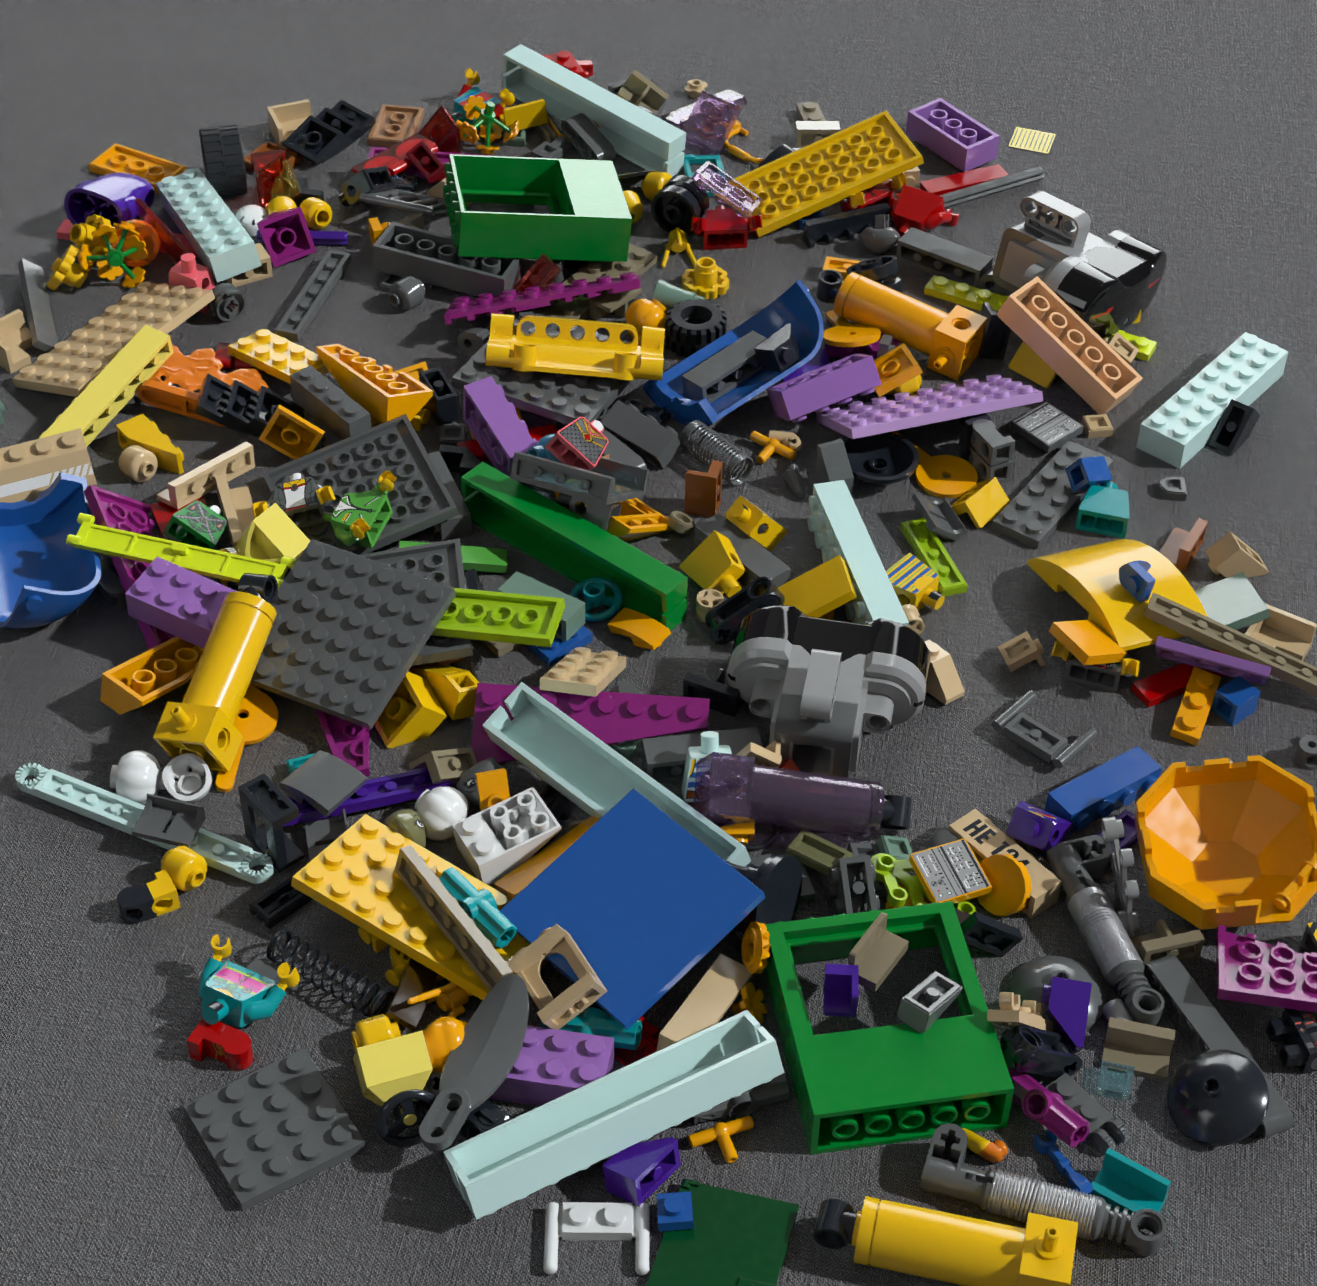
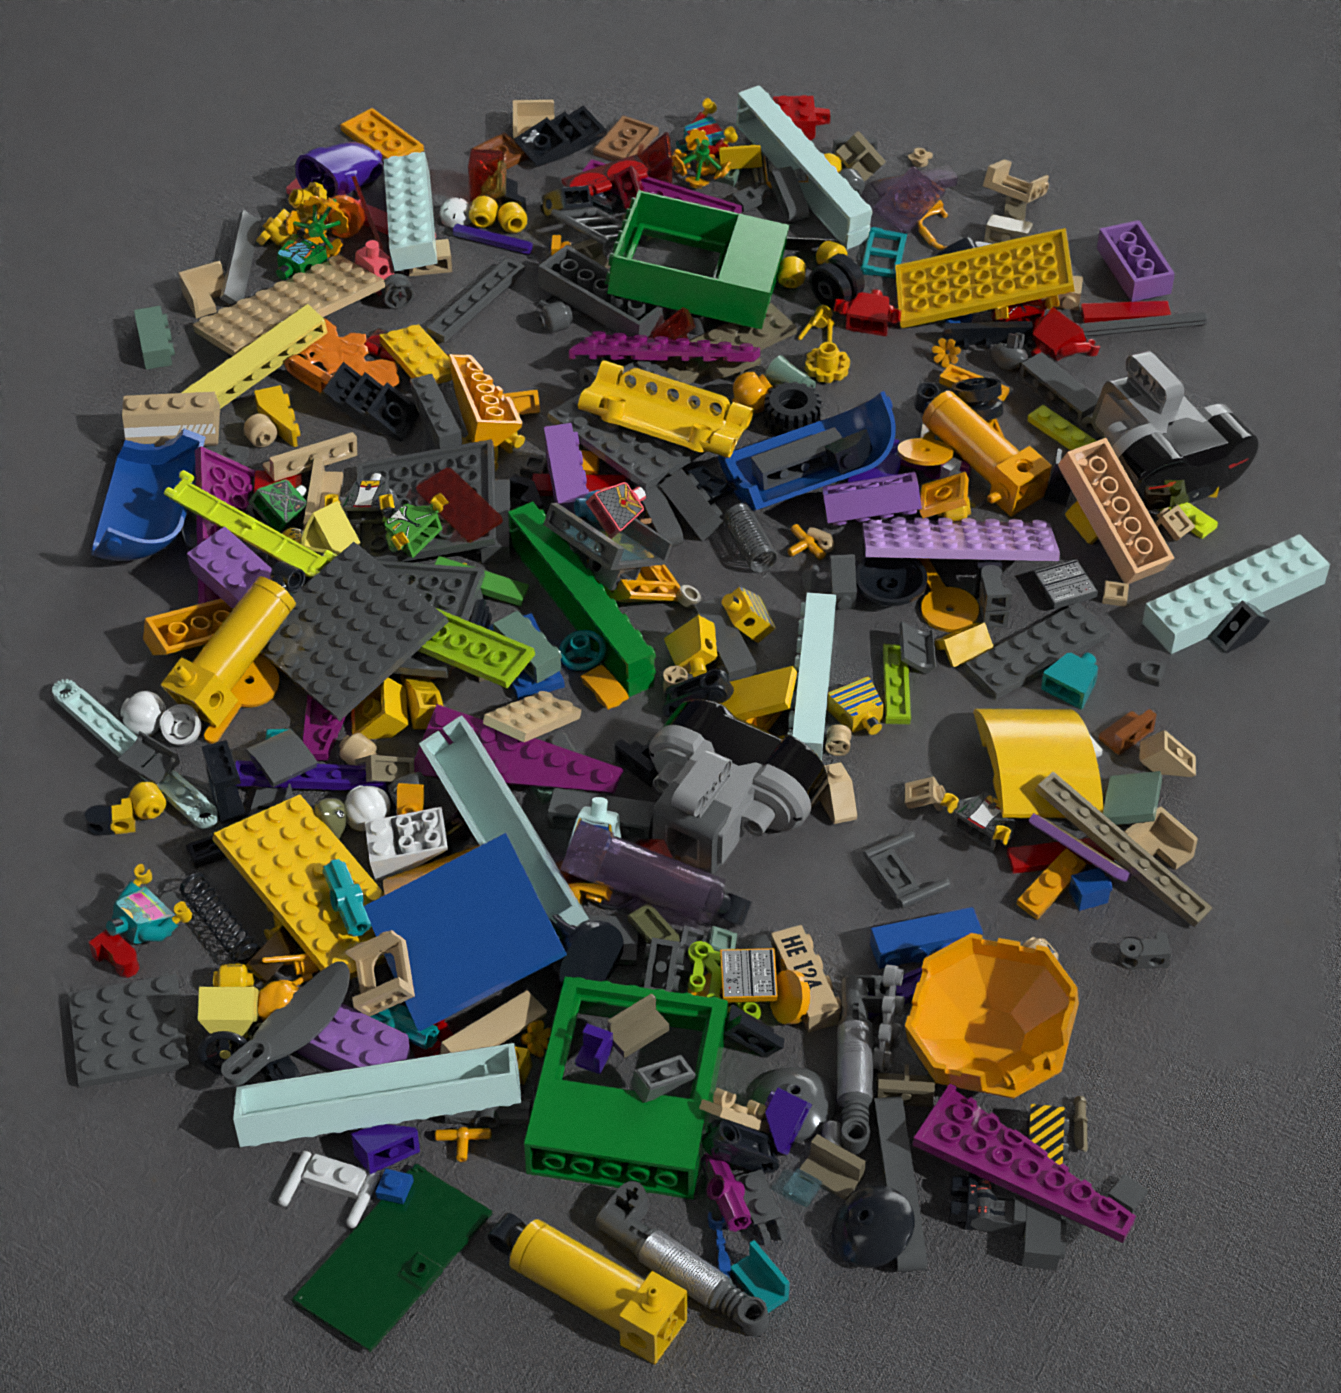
camera: 20 degrees right, 5 degrees up
(102, 290) = (299, 256): none -> torso
(223, 159) = (448, 149): black tyre -> none
(286, 236) = (473, 237): magenta slope -> none
(291, 434) = (393, 433): light orange slope -> none
(400, 753) = (356, 747): none -> tan head
(413, 488) = (465, 508): none -> clear red piece
(445, 400) = (534, 422): black brick -> none
(451, 918) = (320, 896): dark tan plate -> none
(704, 490) = (721, 574): dark orange panel -> none
(726, 189) = (881, 277): clear purple plate -> none
(755, 947) = (551, 993): light orange gear -> none
(766, 756) = (633, 832): tan bracket -> none
(782, 92) = (998, 174): none -> tan panel
(810, 247) = (943, 354): none -> light orange plant
(988, 1150) = (658, 1205): arm -> none
(1032, 140) = (1218, 280): light yellow sticker -> none
(1037, 827) = (846, 954): dark purple torso -> none
(1087, 642) = (974, 801): light orange tile -> none
(1088, 472) = (1070, 640): blue brick -> none
(1137, 579) = (1042, 755): blue plate -> none

